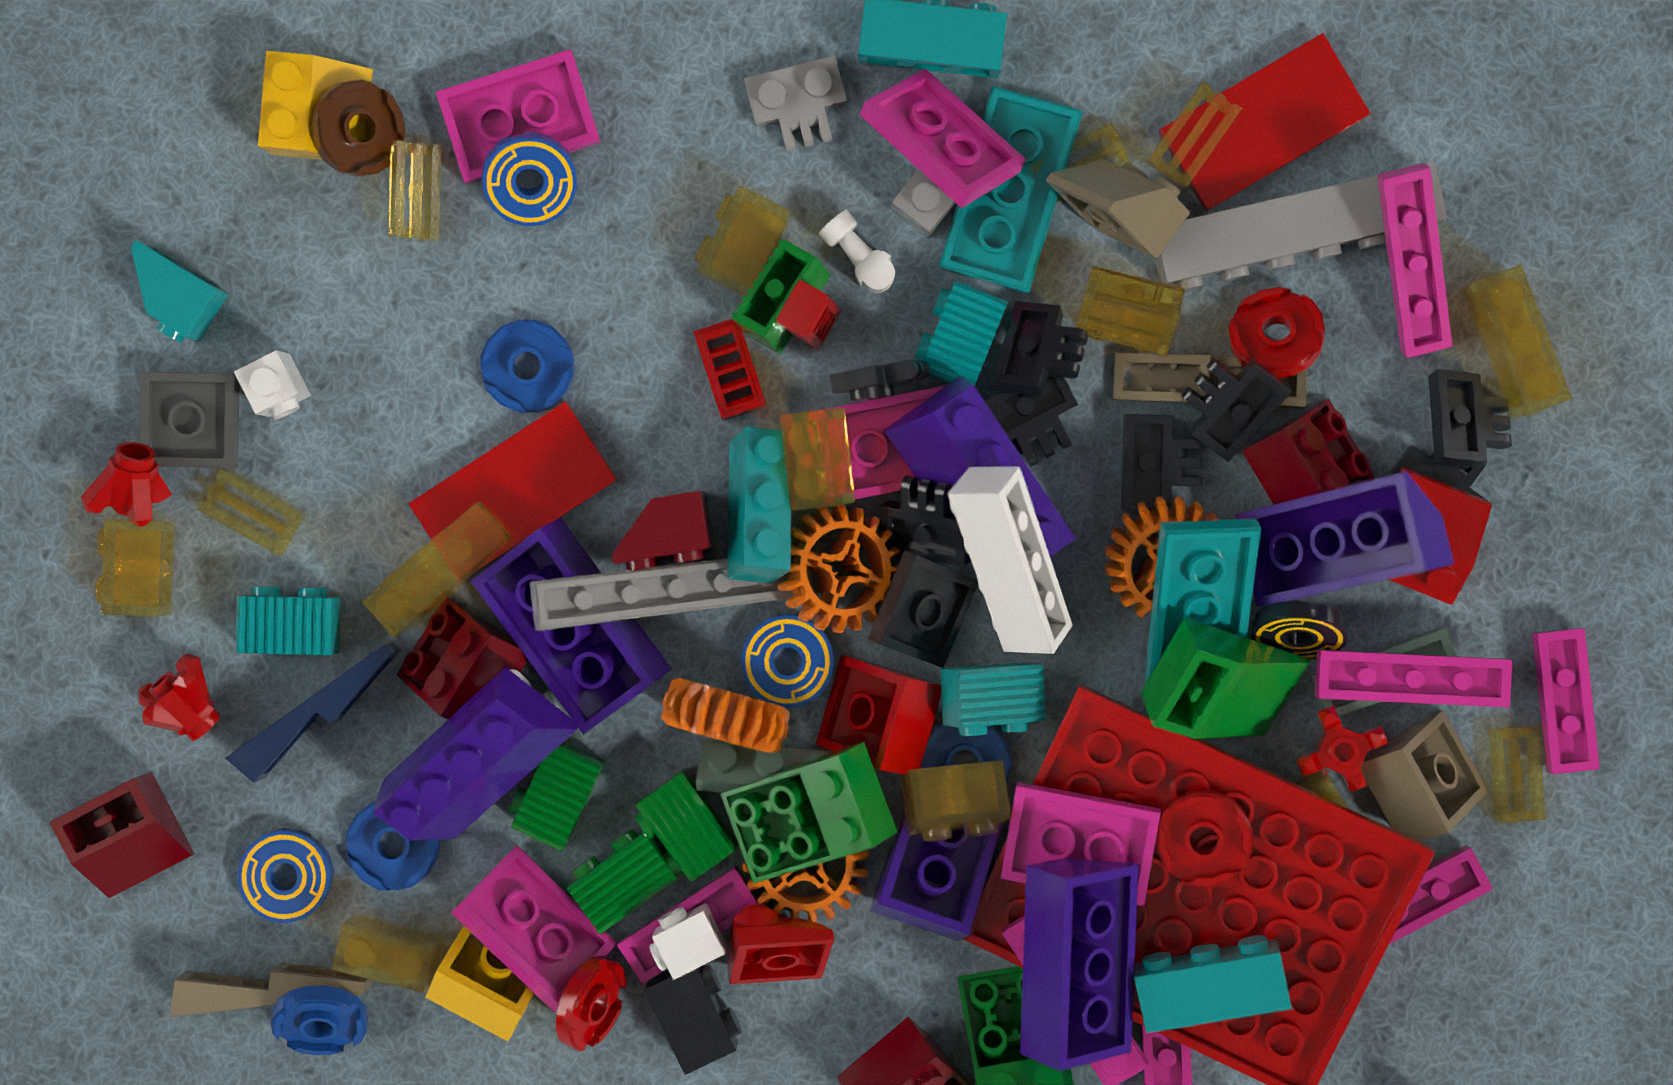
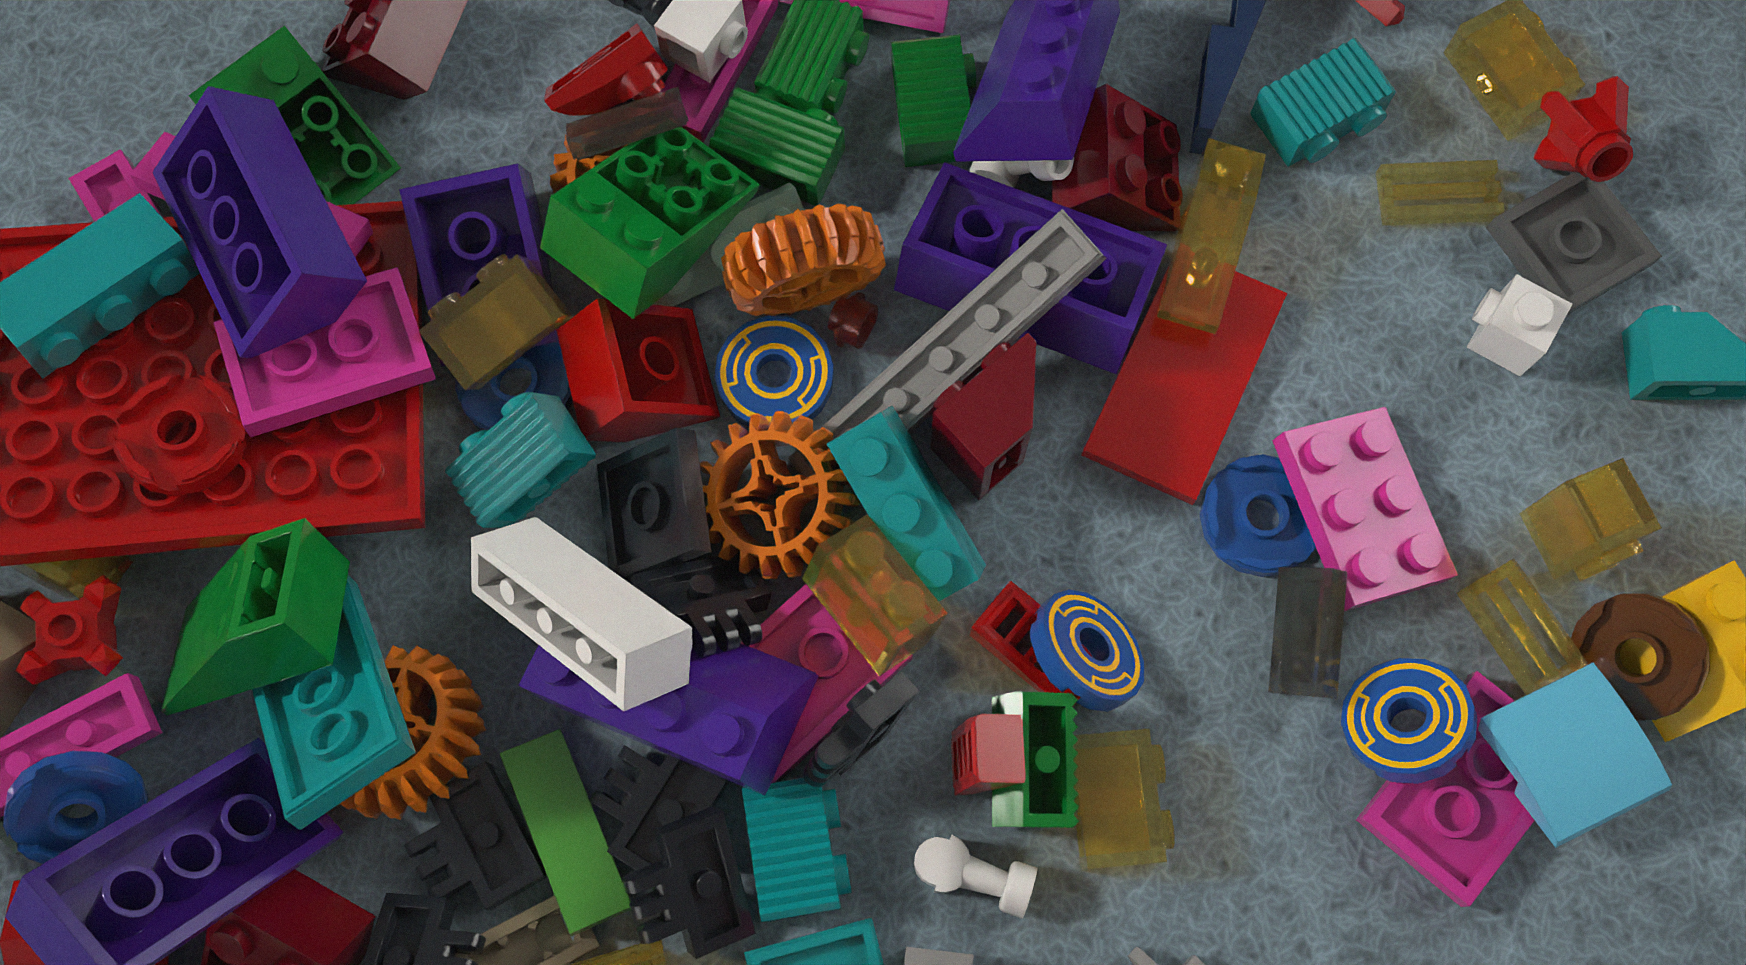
camera: 150 degrees right, 15 degrees down
(328, 225) = (1591, 522): none -> clear yellow brick
(444, 94) = (1575, 754): none -> medium azure slope
(460, 328) = (1364, 506): none -> plate
(554, 271) = (1308, 632): none -> clear smoke plate
(682, 344) = (1057, 641): none -> blue tile
(712, 665) = (852, 320): none -> clear red plate
(786, 889) = (626, 124): none -> clear smoke tile
(1097, 435) = (565, 832): none -> bright green tile
(1299, 628) = (193, 741): black tile -> none
(1404, 649) = (65, 780): none -> blue tile

